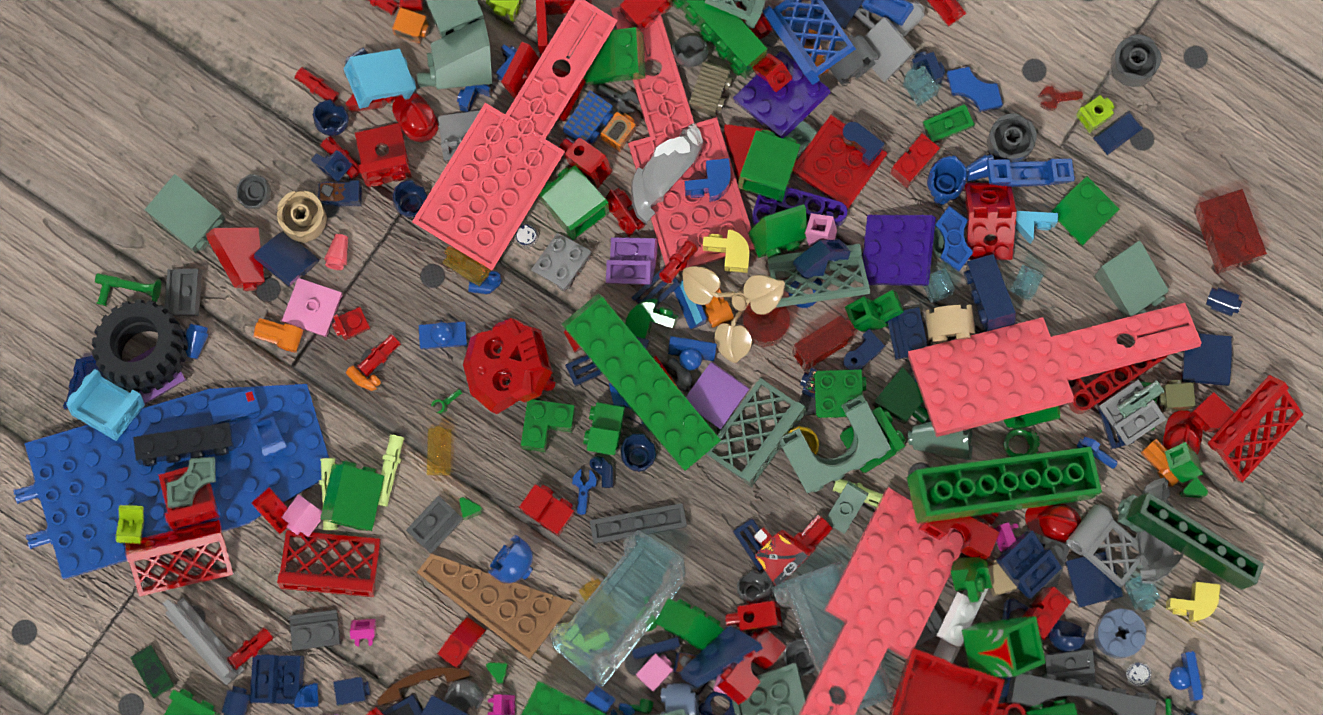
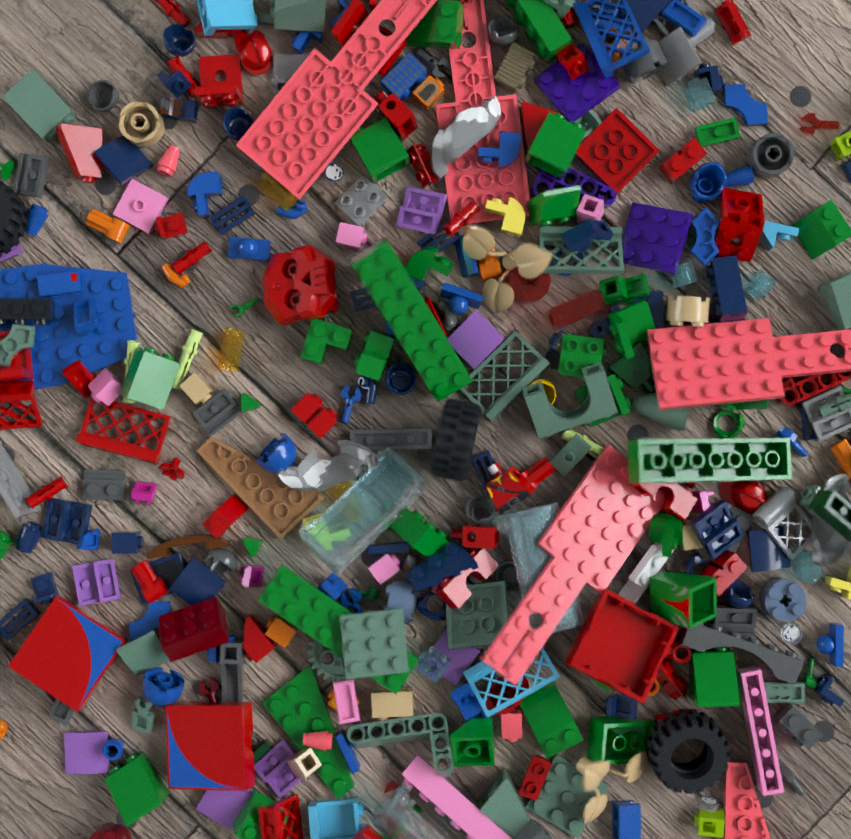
camera: 10 degrees right, 10 degrees up
(379, 275) = (204, 186): none -> blue brick
(391, 599) = (172, 469): none -> red plant
(407, 502) = (197, 389): none -> tan brick
(433, 288) = (214, 218): none -> dark blue tile
(556, 302) = (351, 236): none -> bright pink brick
(560, 580) = (316, 476): none -> light grey animal
(712, 507) = (455, 439): none -> black tyre
(862, 140) = (641, 136): dark blue leg -> none
(888, 351) = (630, 326): none -> green bracket
(1030, 173) = (781, 188): blue slope -> none

